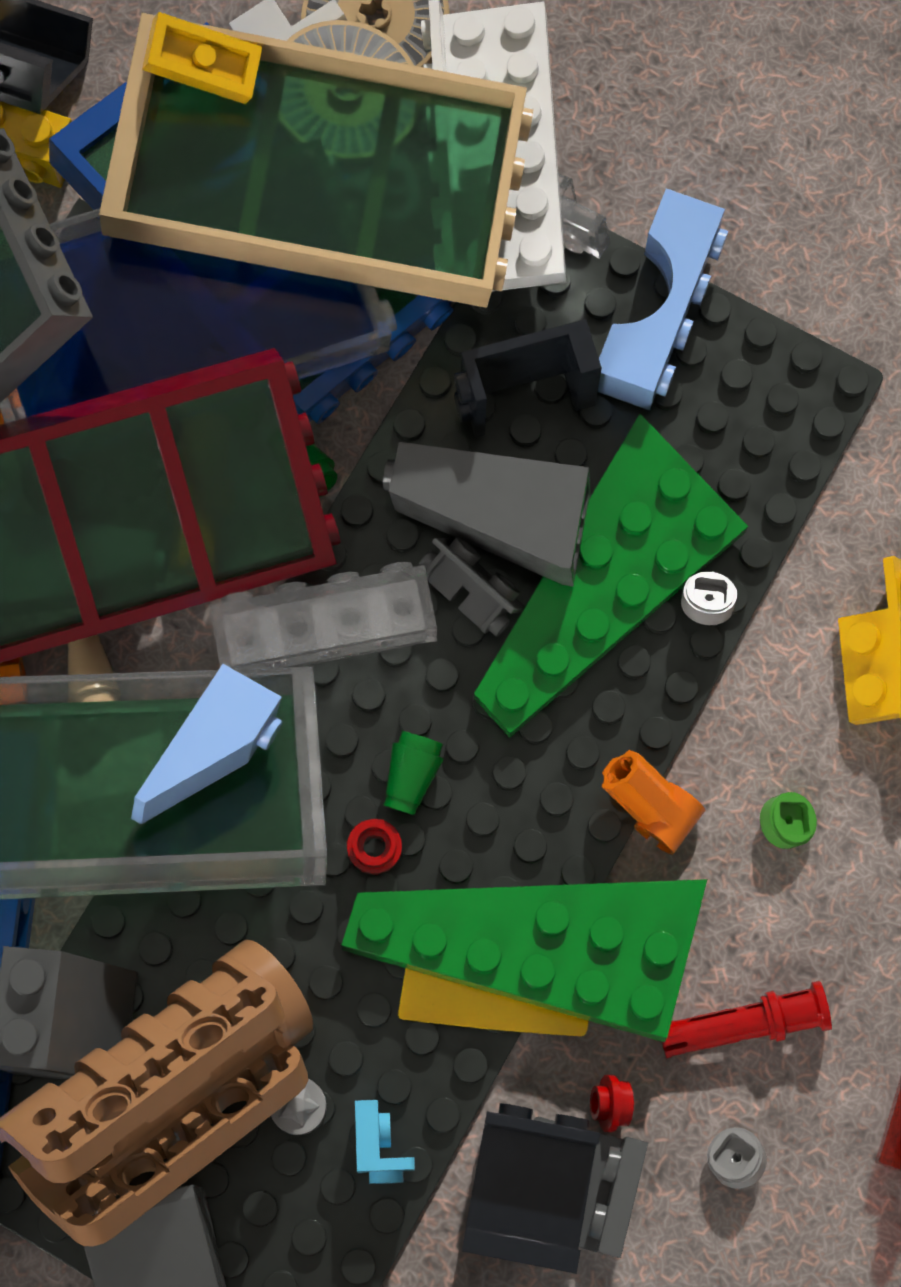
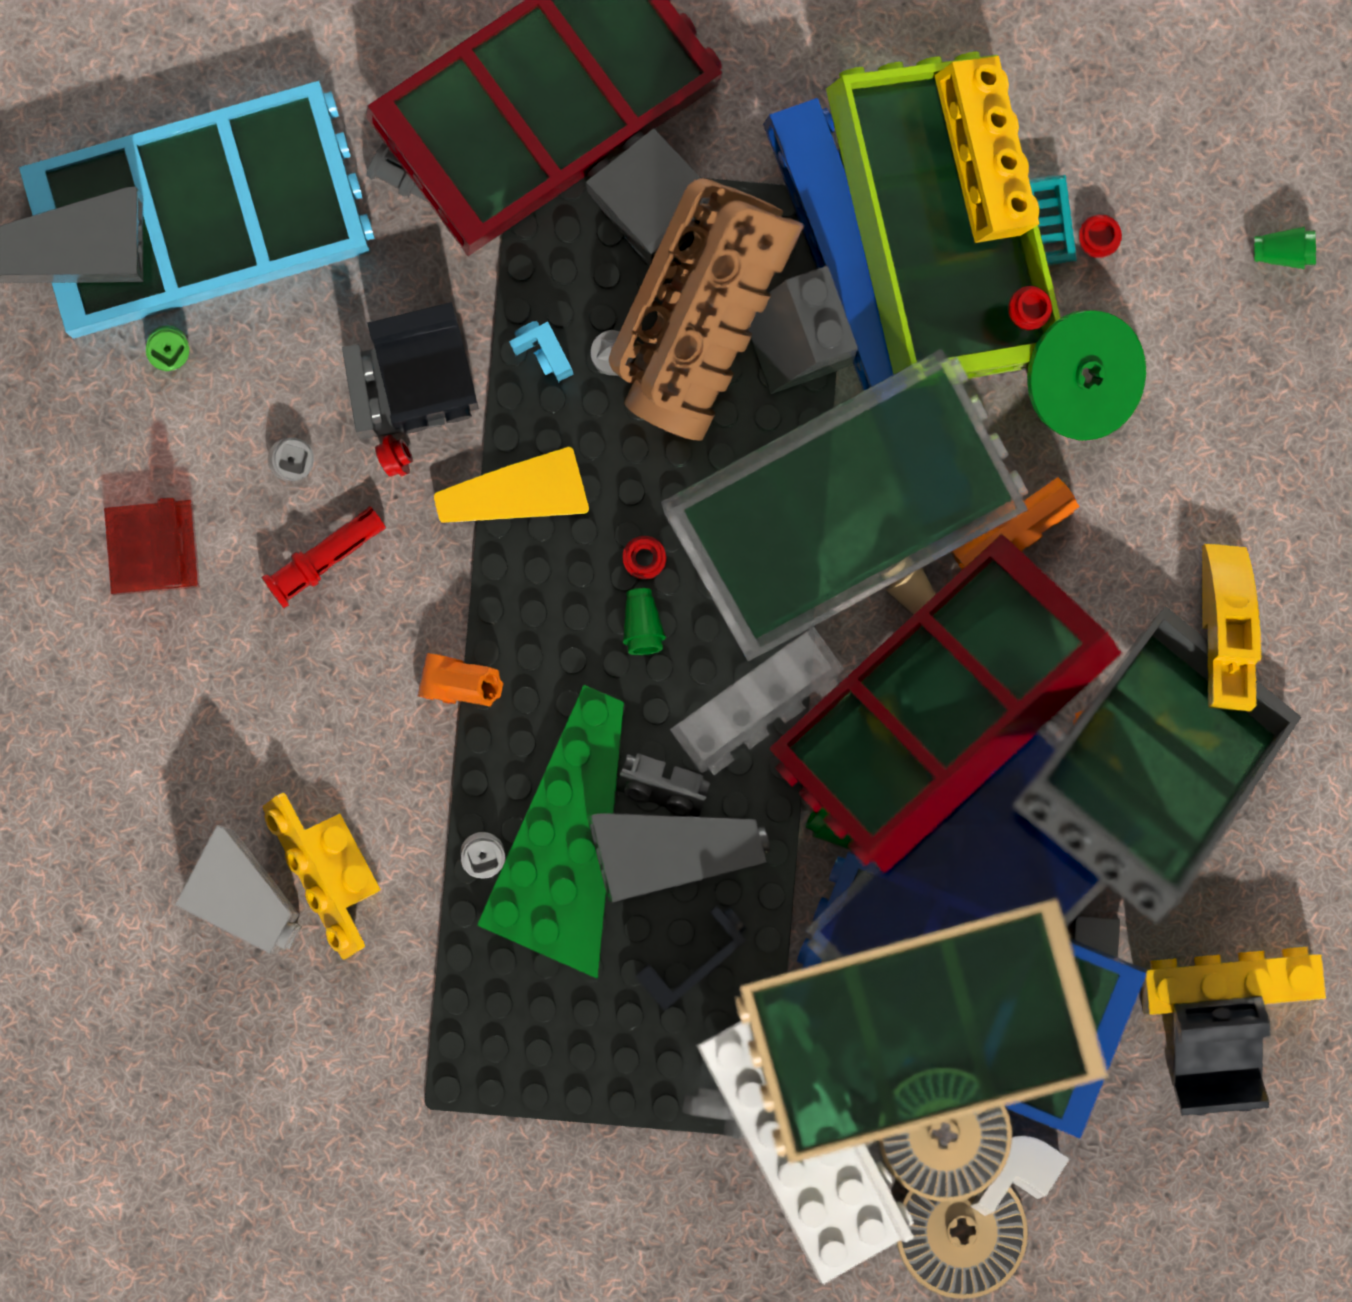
camera: 155 degrees right, 10 degrees up
(202, 58) = (1042, 1059): yellow plate -> none
(212, 742) = (785, 568): light blue slope -> none
(571, 948) = (468, 548): green wing -> none
(679, 245) = (624, 1136): light blue arch -> none
(788, 820) = (354, 717): bright green tile -> none

